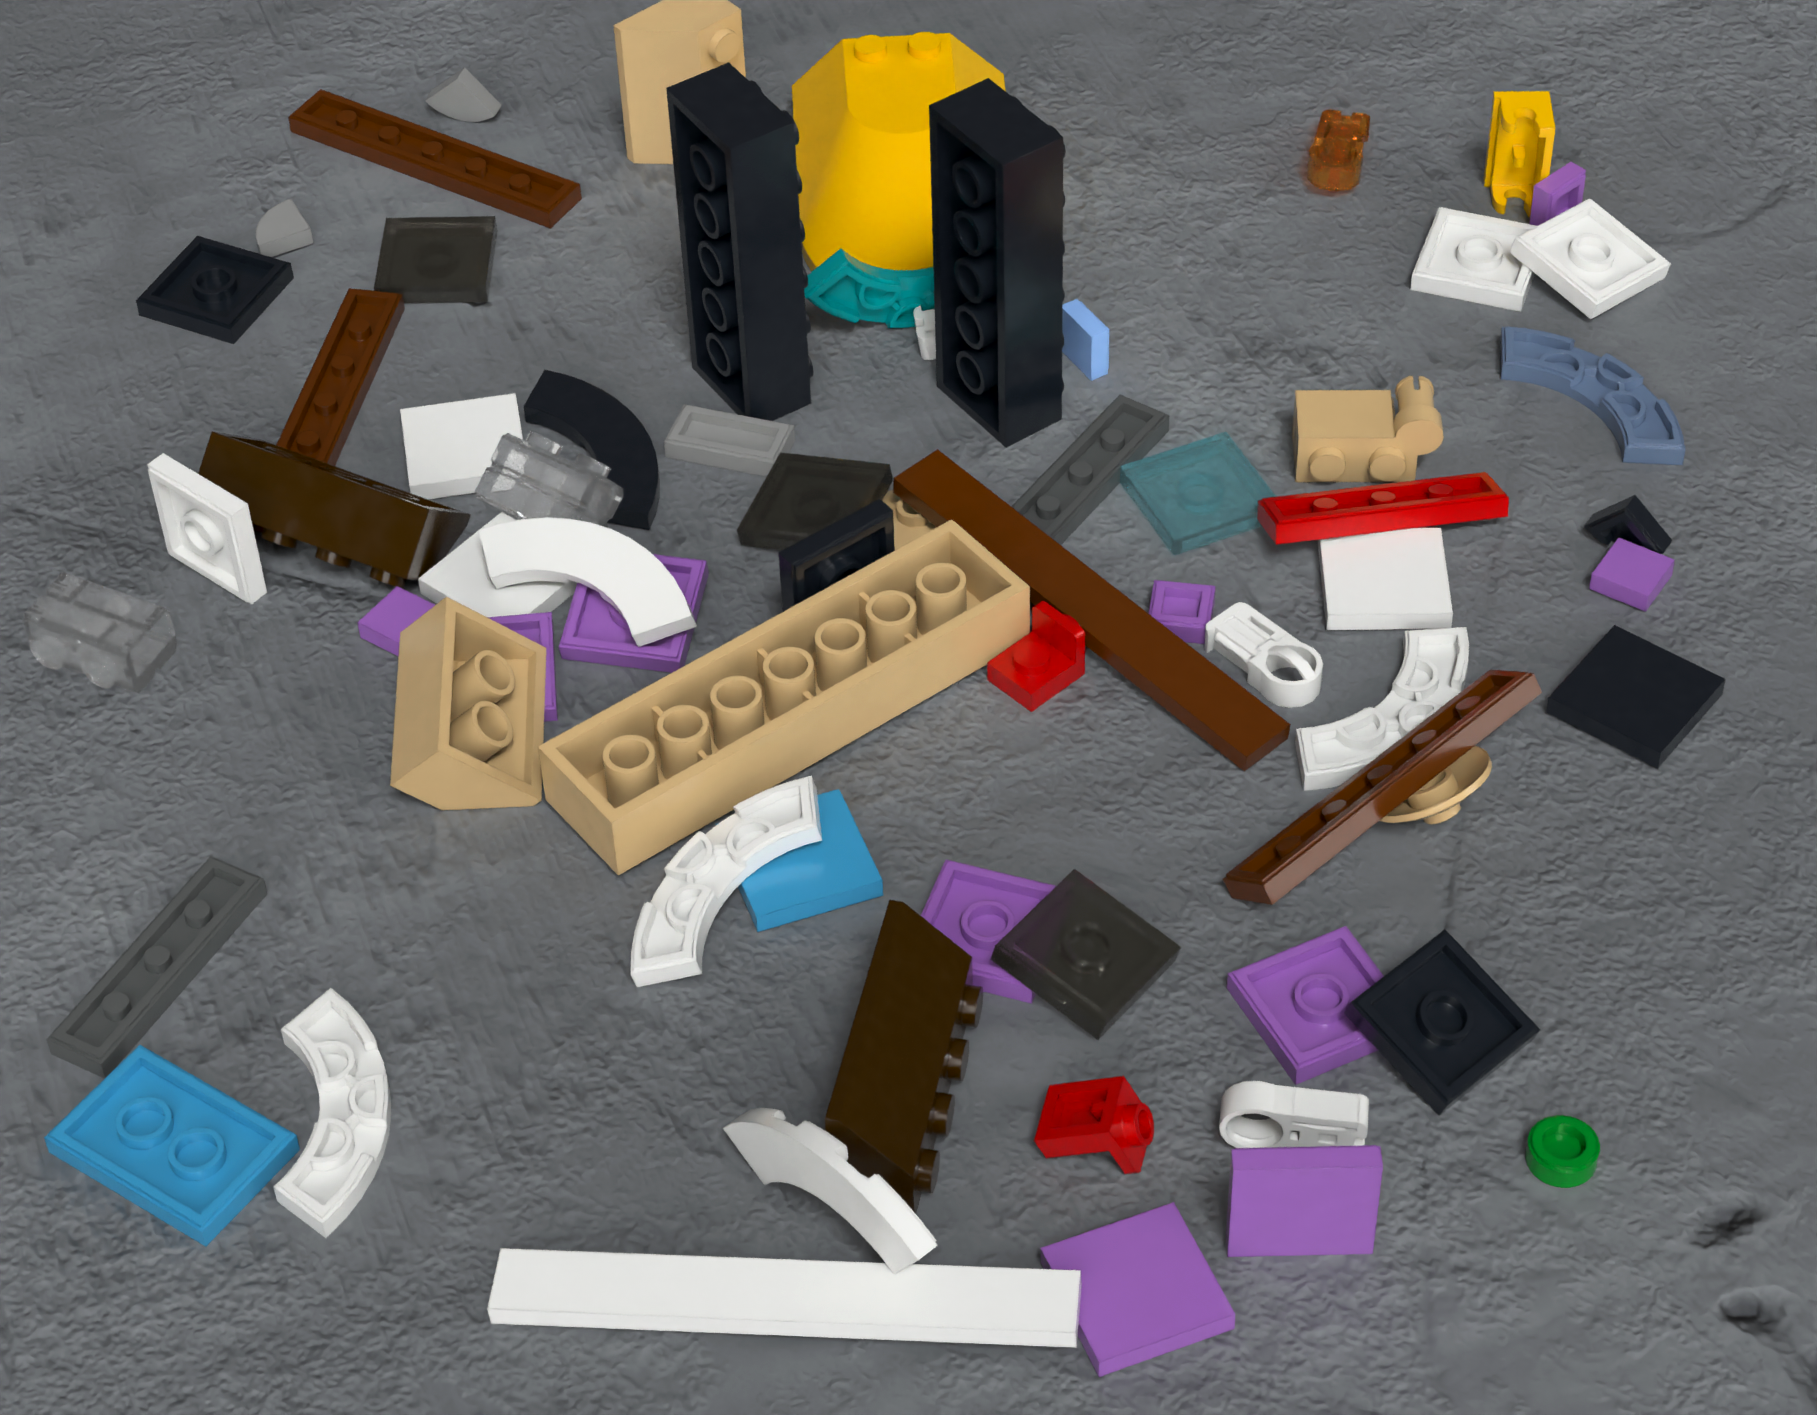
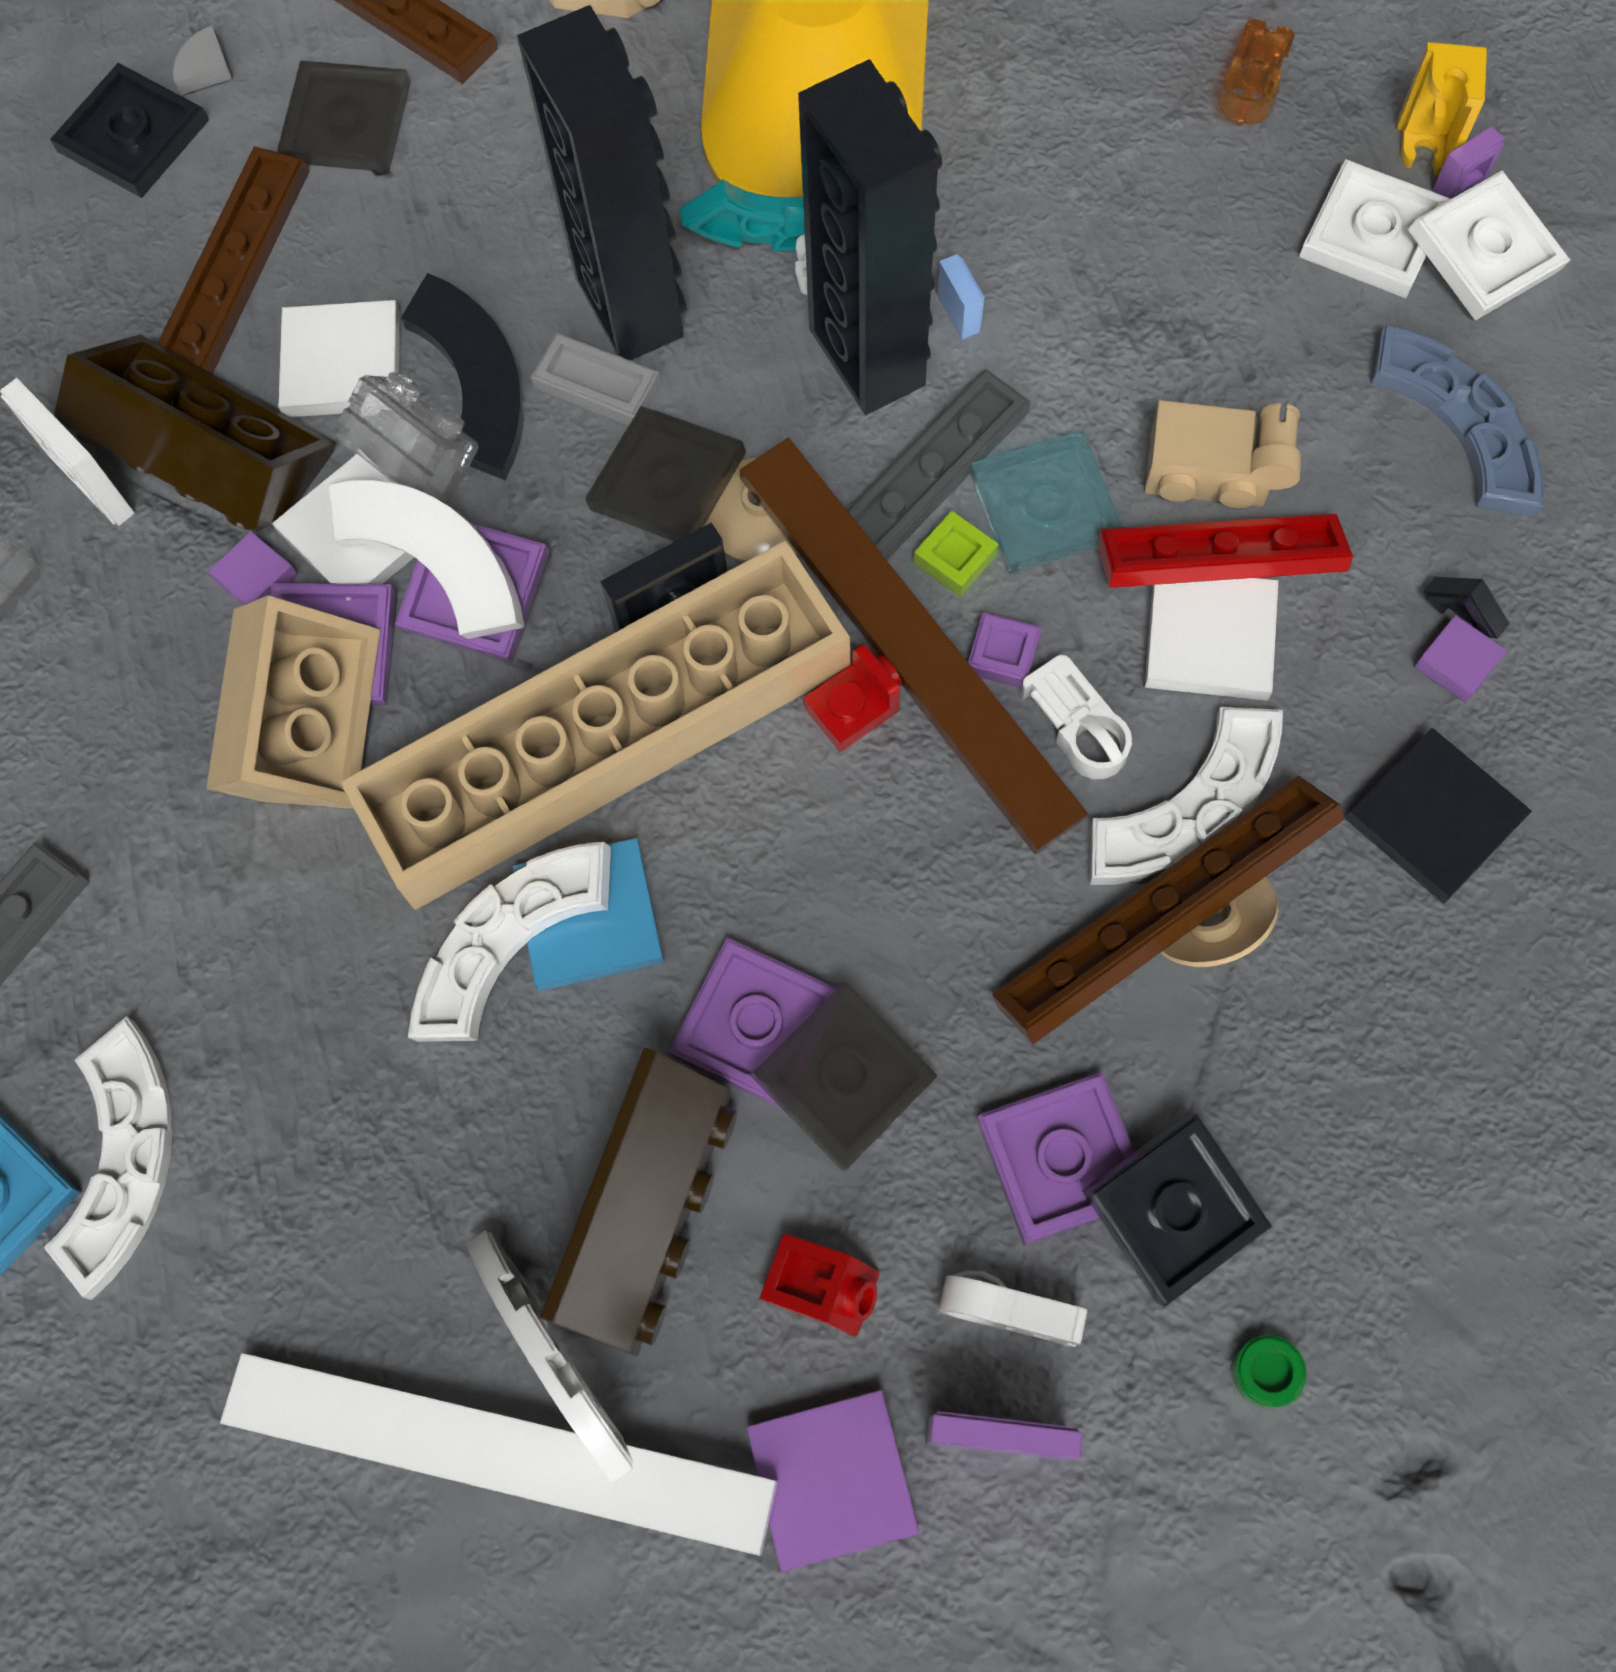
camera: 10 degrees right, 25 degrees up
(1118, 541) = (956, 553): none -> lime tile

